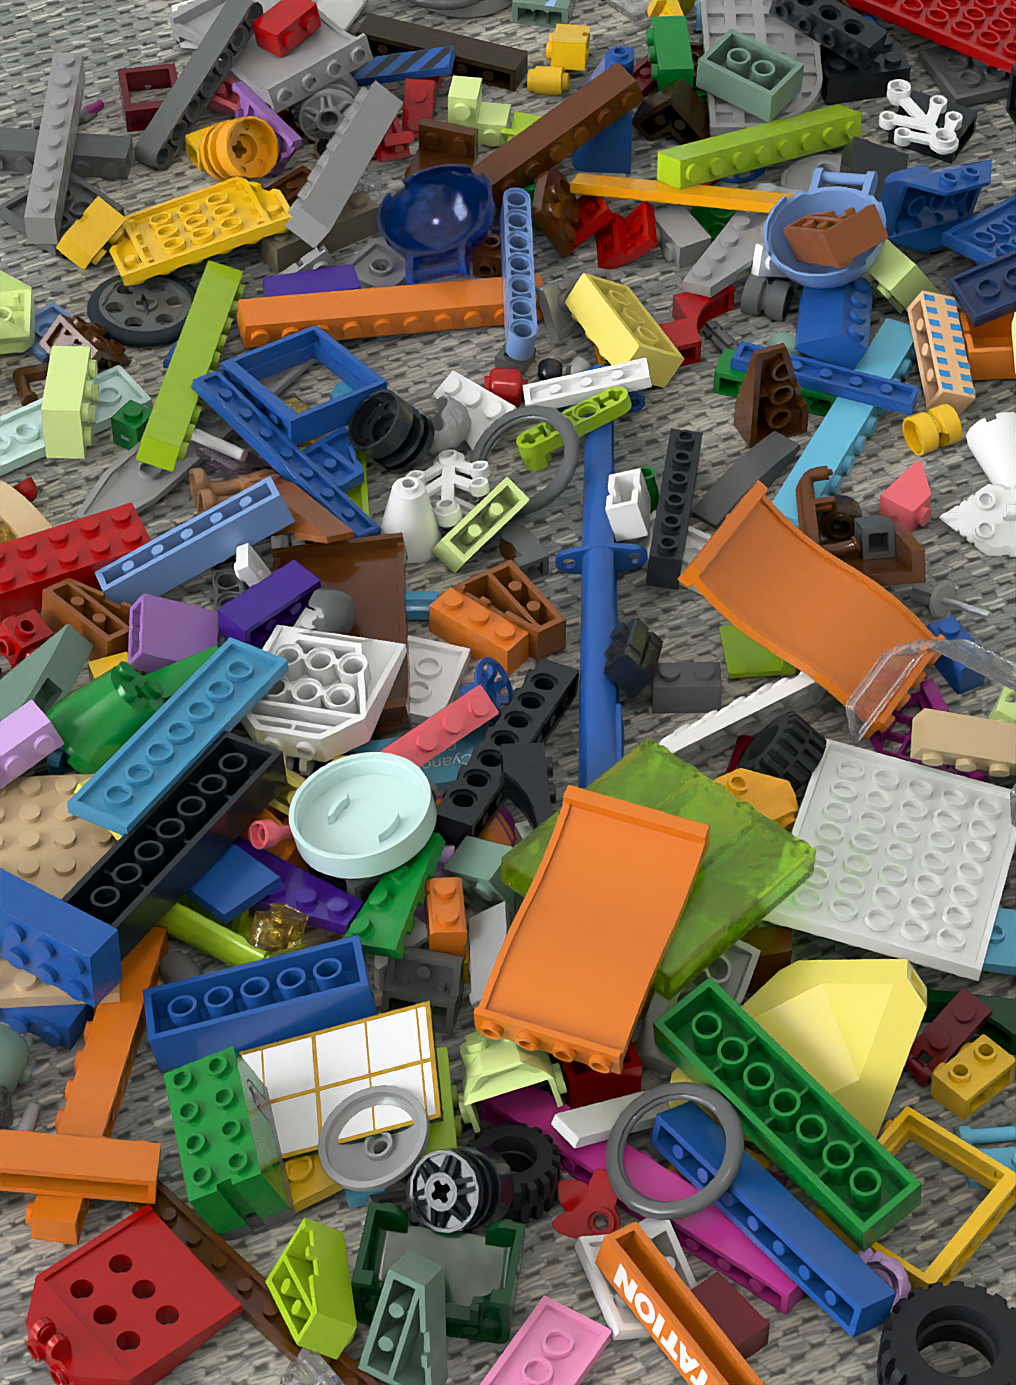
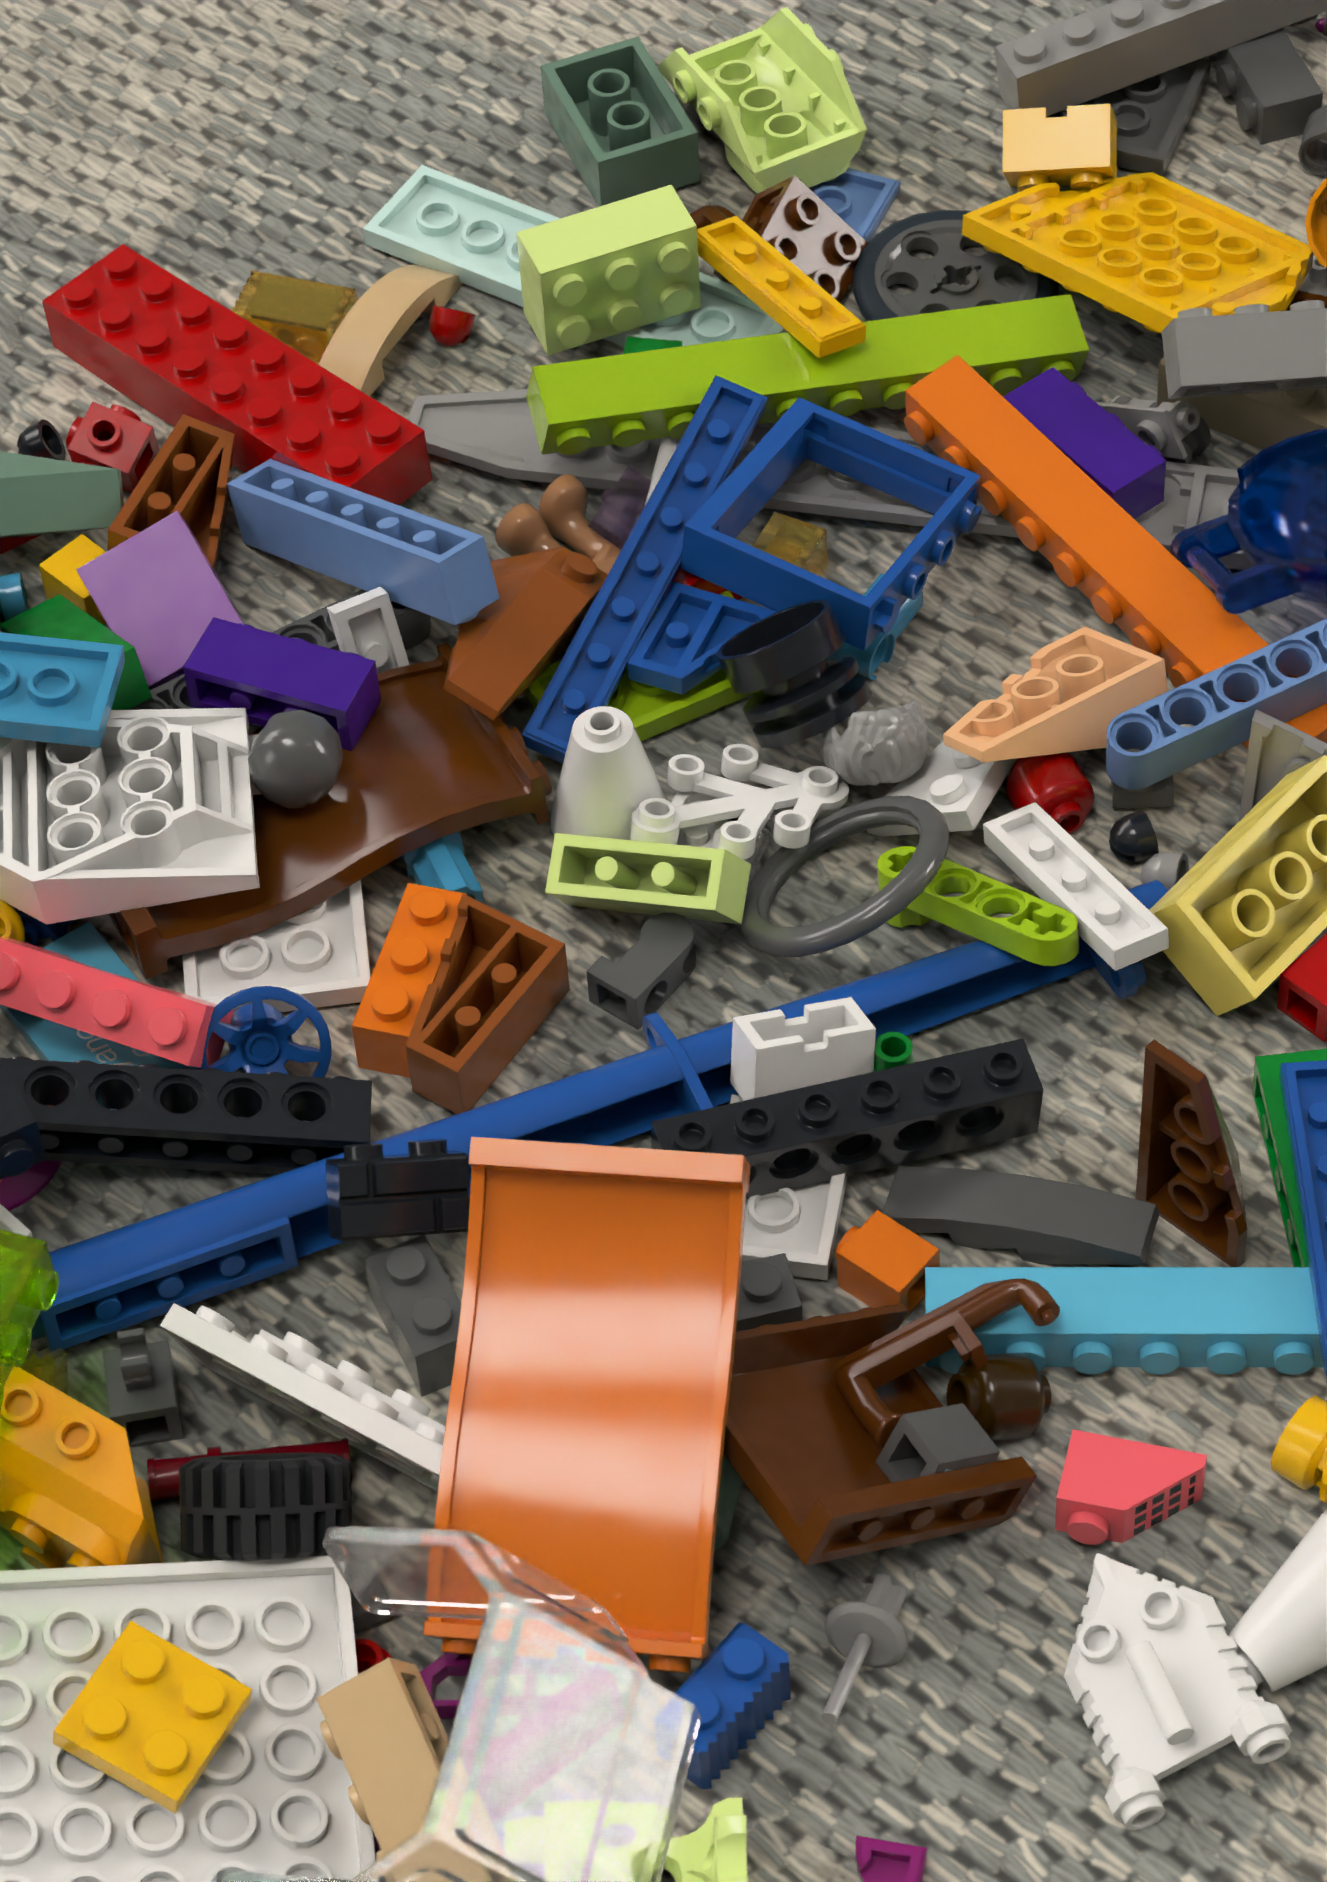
camera: 70 degrees right, 5 degrees up
(144, 341) = (779, 287): none -> yellow tile
(465, 352) = (1061, 700): none -> light nougat wedge
(890, 816) = (152, 1716): none -> yellow plate

